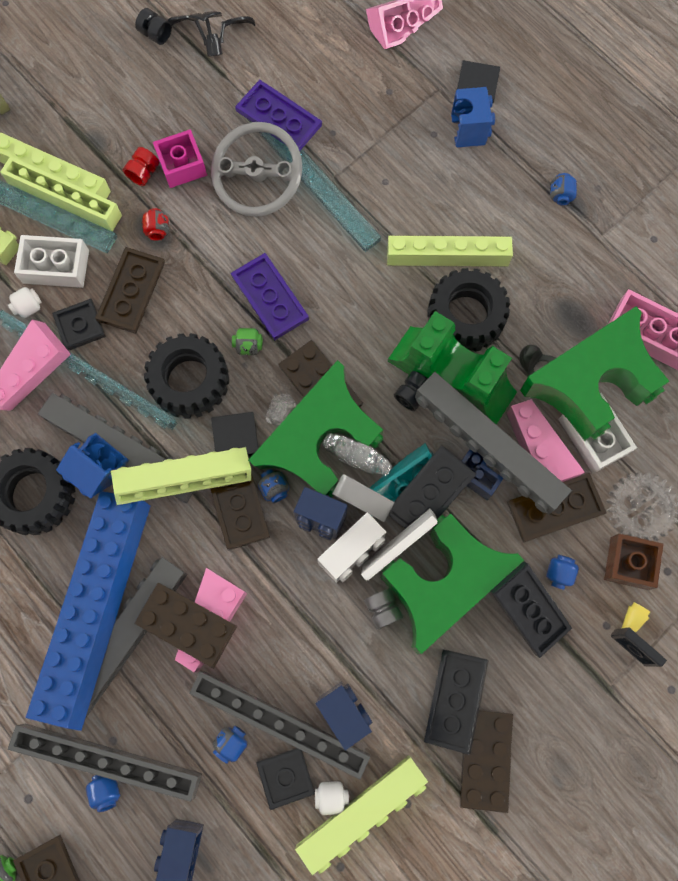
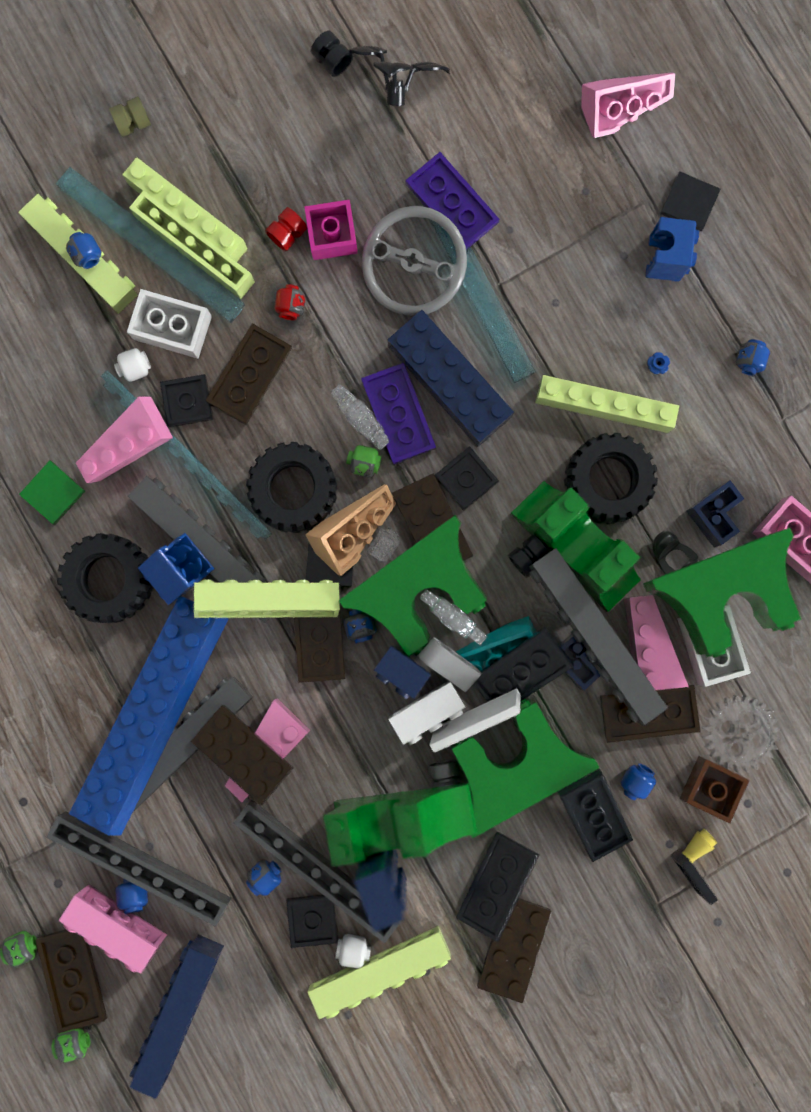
camera: 15 degrees right, 10 degrees up
(86, 829) = (119, 934): none -> bright pink brick
(235, 300) = (360, 416): none -> clear gear
(243, 406) = (347, 532): none -> light nougat wedge
(308, 257) = (450, 378): none -> dark blue brick
(342, 338) = (466, 478): none -> black tile
(348, 652) = (400, 820): none -> green piece
(482, 215) = (658, 369): none -> blue plate
(564, 320) = (711, 513): none -> dark blue brick

